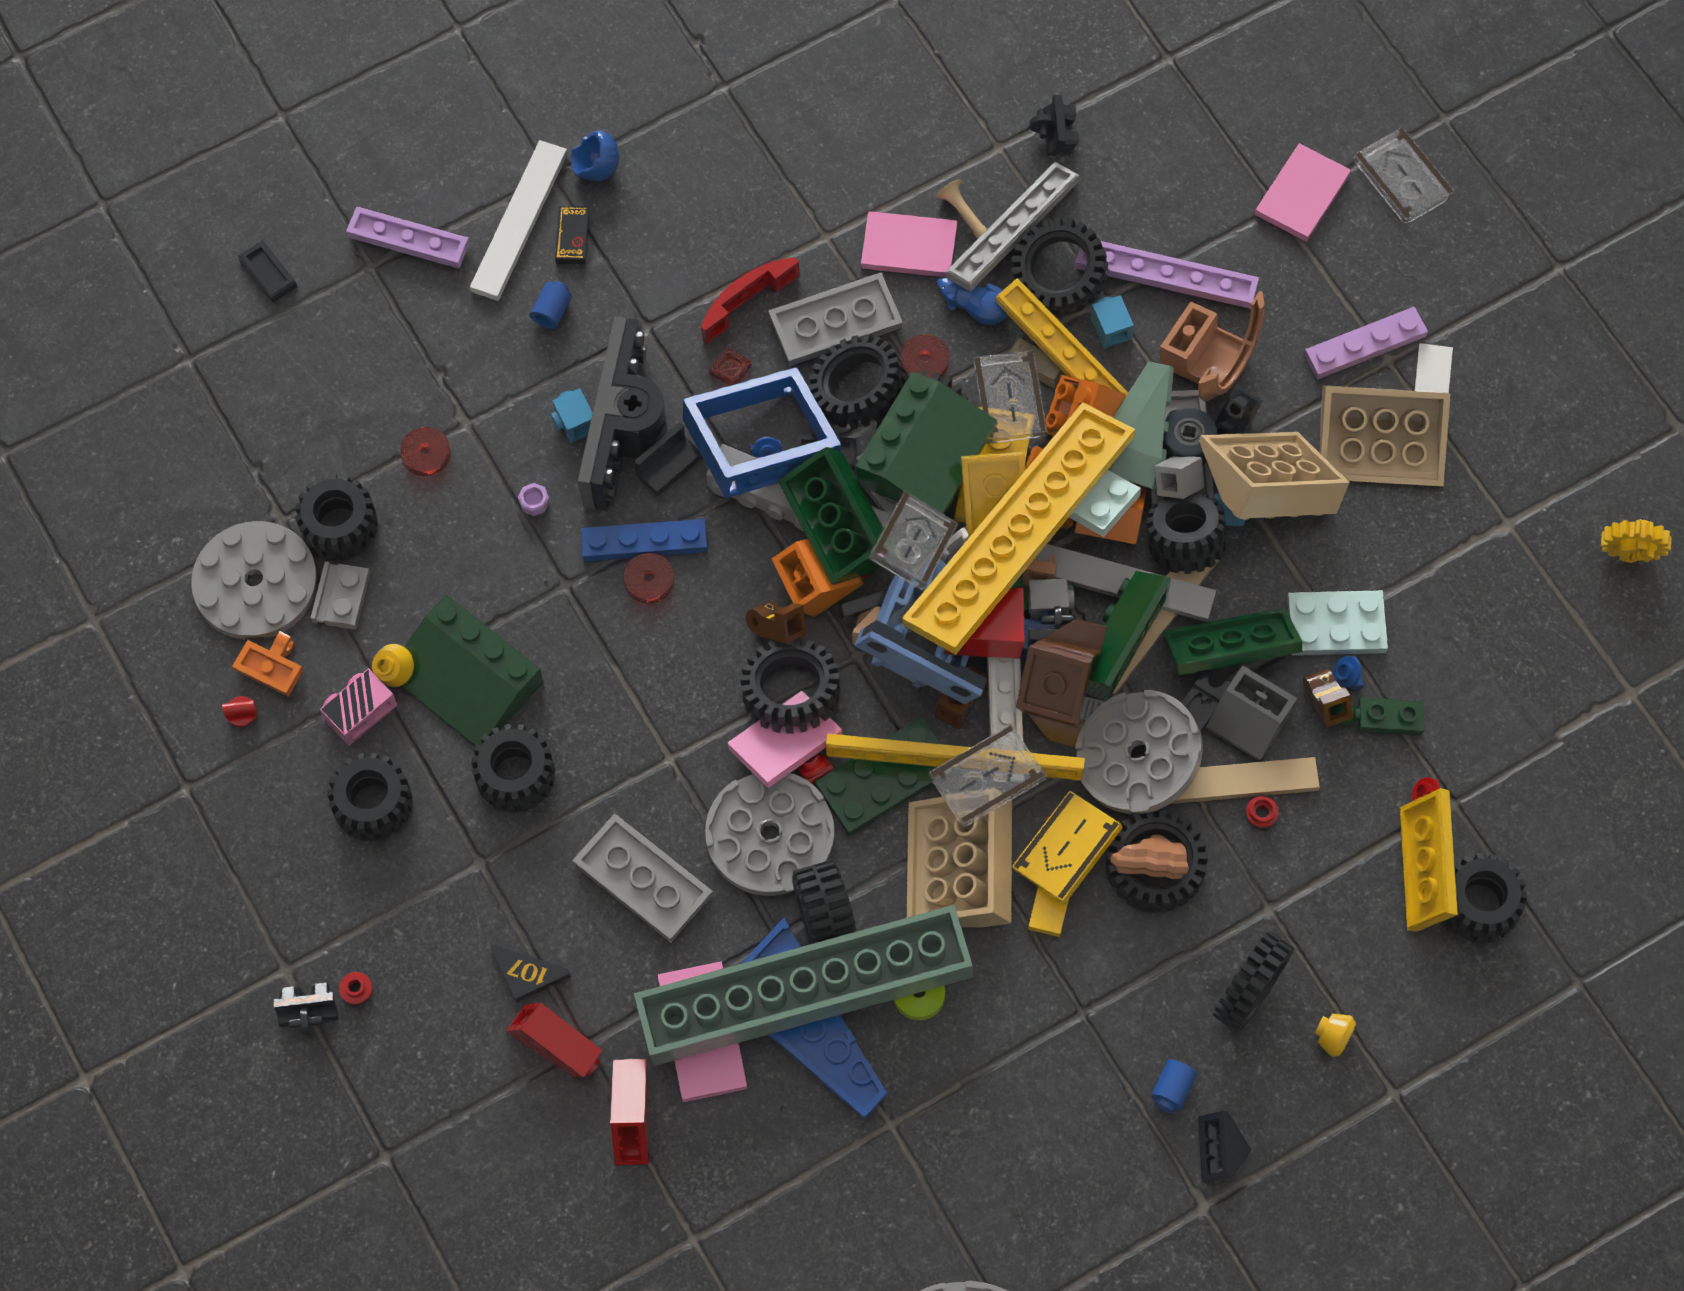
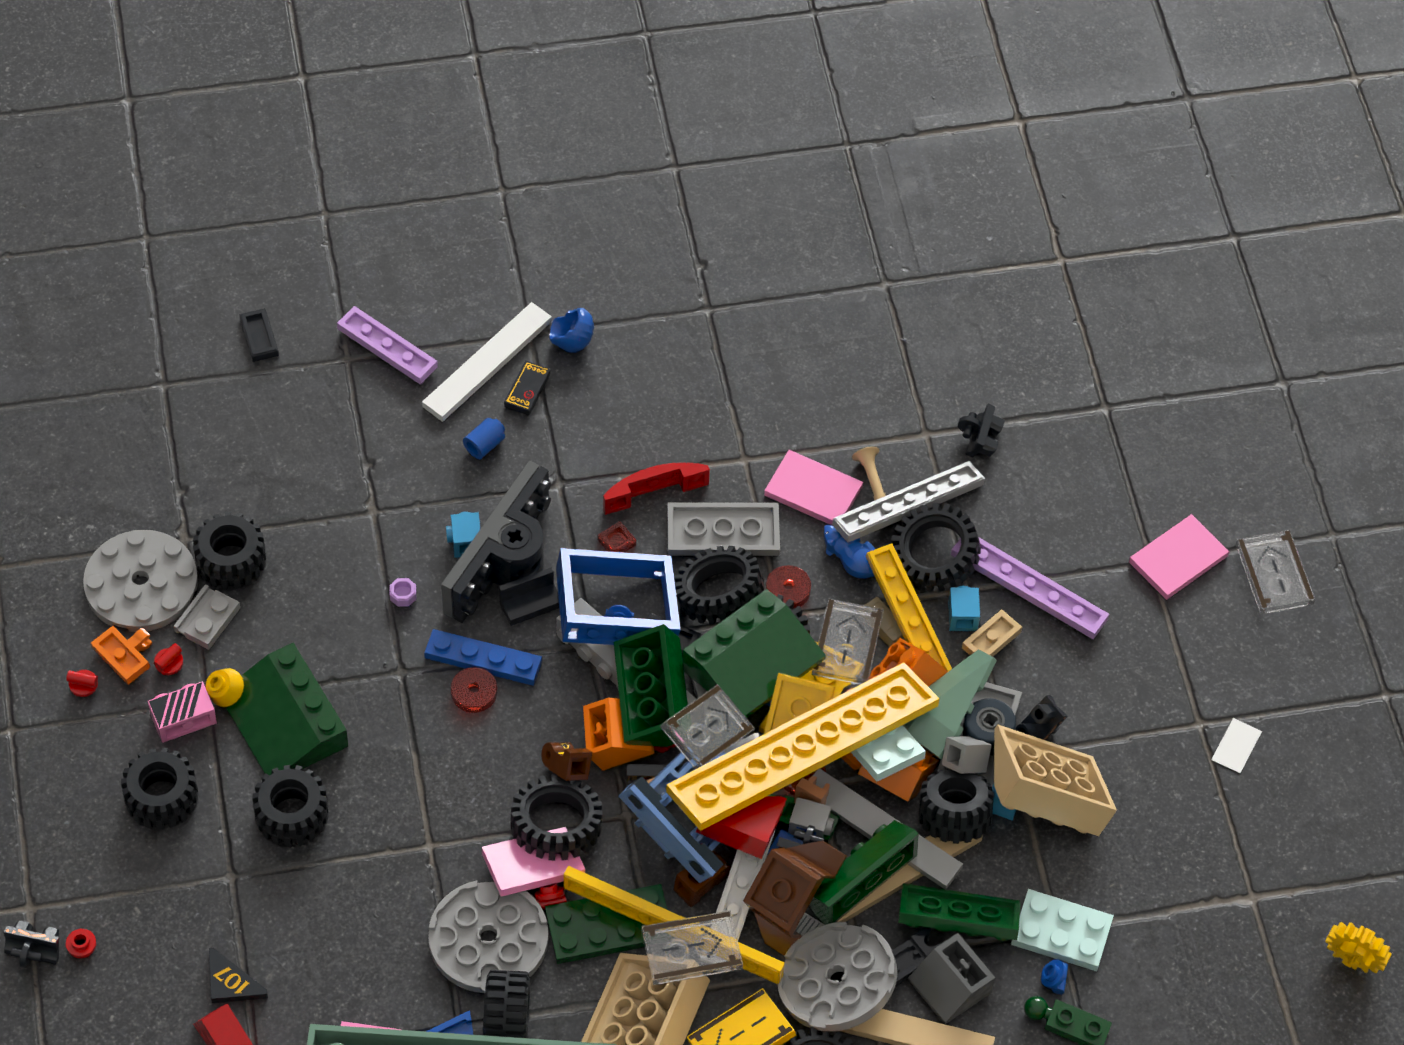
camera: 15 degrees right, 10 degrees down
(321, 656) = (169, 660): none -> red plate
(429, 463) = (332, 533): clear red piece -> none
(642, 877) = (363, 936): light grey plate -> none
(1149, 339) = (993, 635): none -> tan plate
(1209, 353) = (1036, 662): nougat piece -> none
(1324, 693) = (1025, 985): reddish brown leg -> none
(1365, 343) = (1184, 701): lavender plate -> none
(1385, 434) = (1168, 783): tan slope -> none

